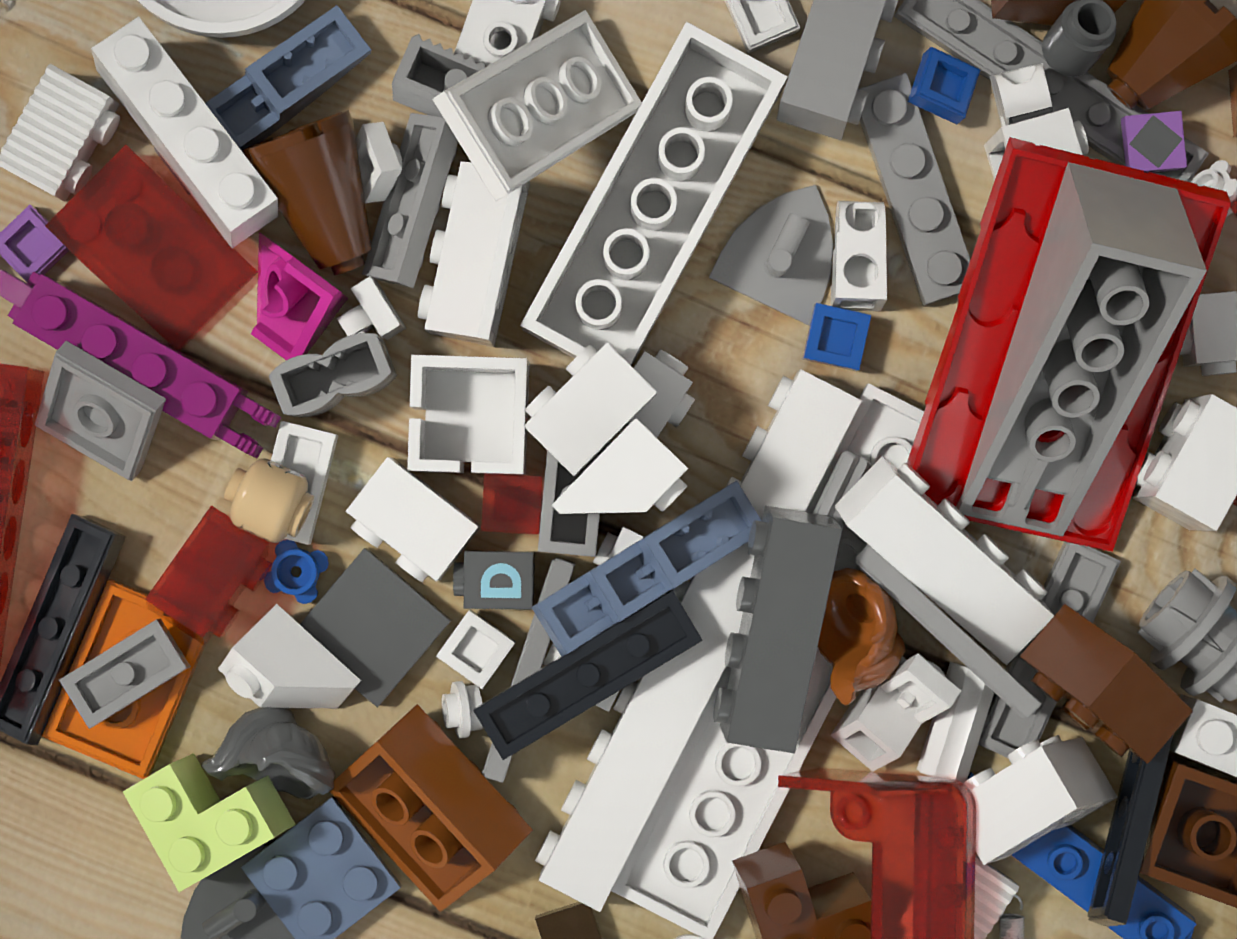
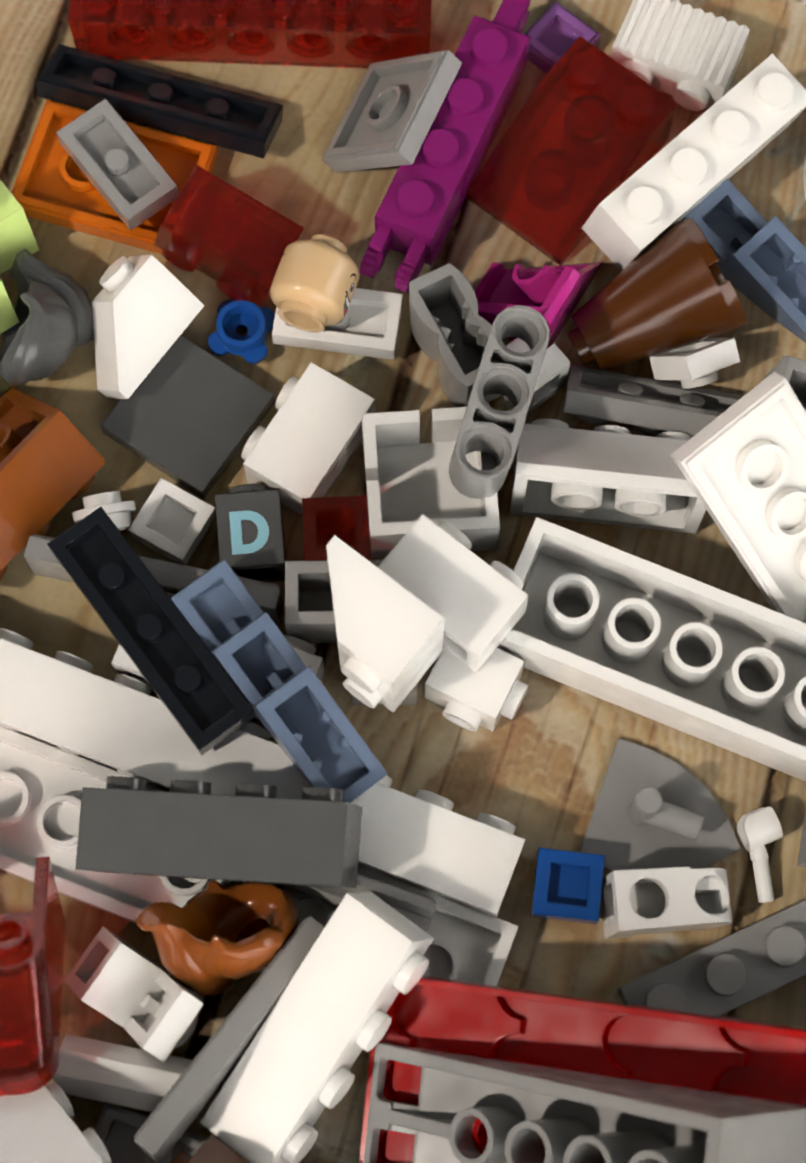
camera: 85 degrees right, 15 degrees down
(397, 325) = (504, 374): none -> light grey beam
(804, 169) = (755, 832): none -> white hand

